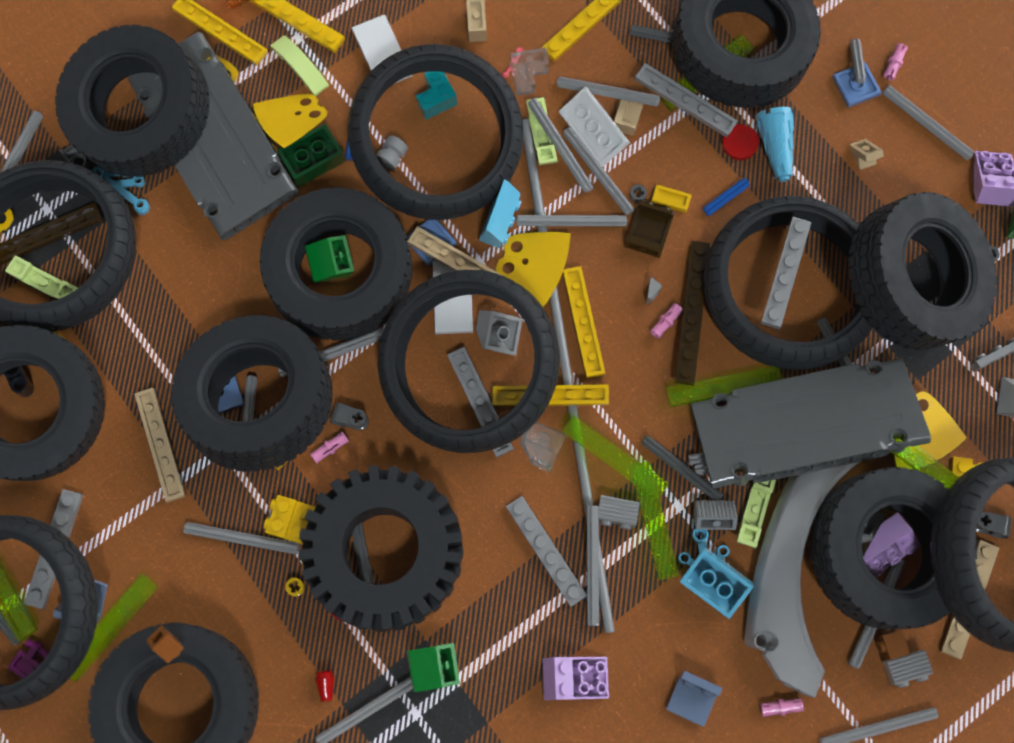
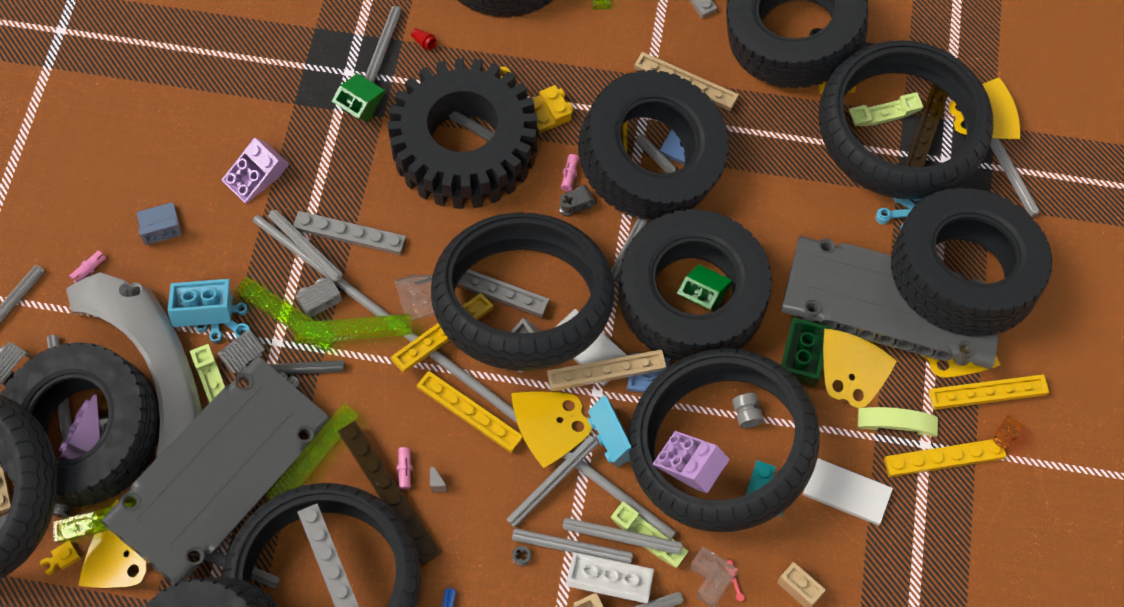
camera: 135 degrees right, 10 degrees down
(241, 538) = (572, 71): light grey axle -> none
(479, 123) = (692, 461): none -> lavender slope
(649, 229) = (483, 531): dark brown panel -> none
(671, 198) = (490, 577): yellow tile -> none

